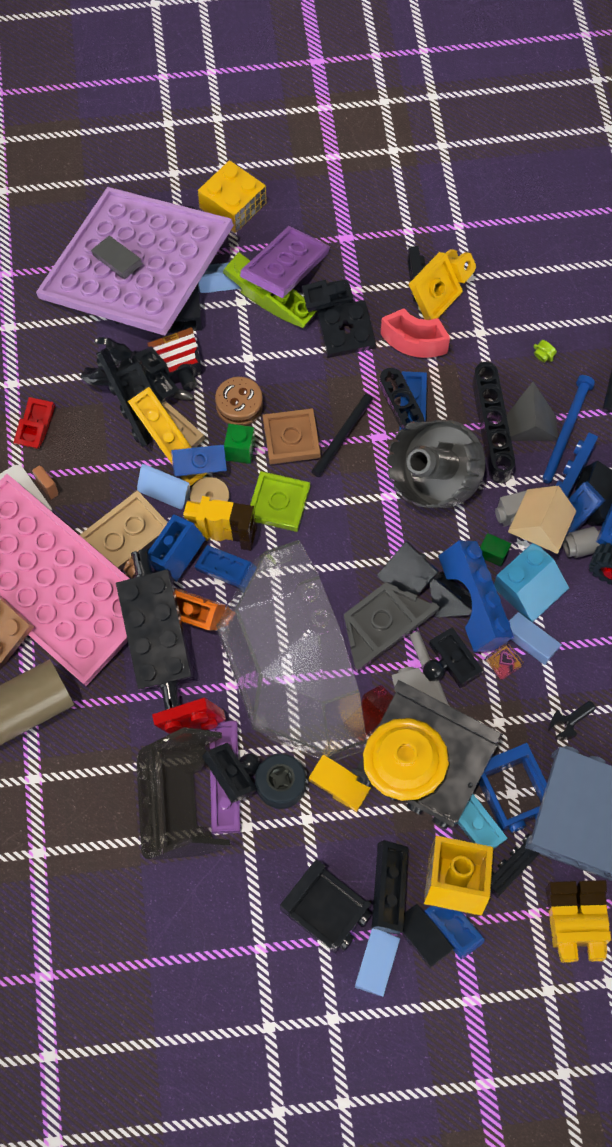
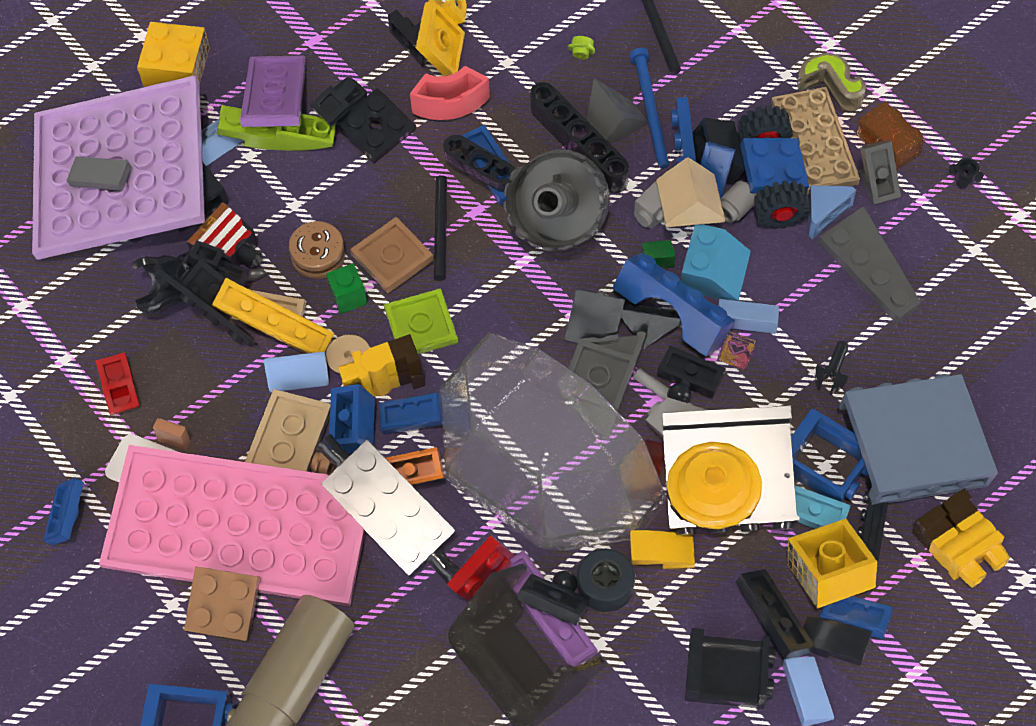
camera: 30 degrees left, 5 degrees down
(198, 460) = (319, 325): blue plate -> none

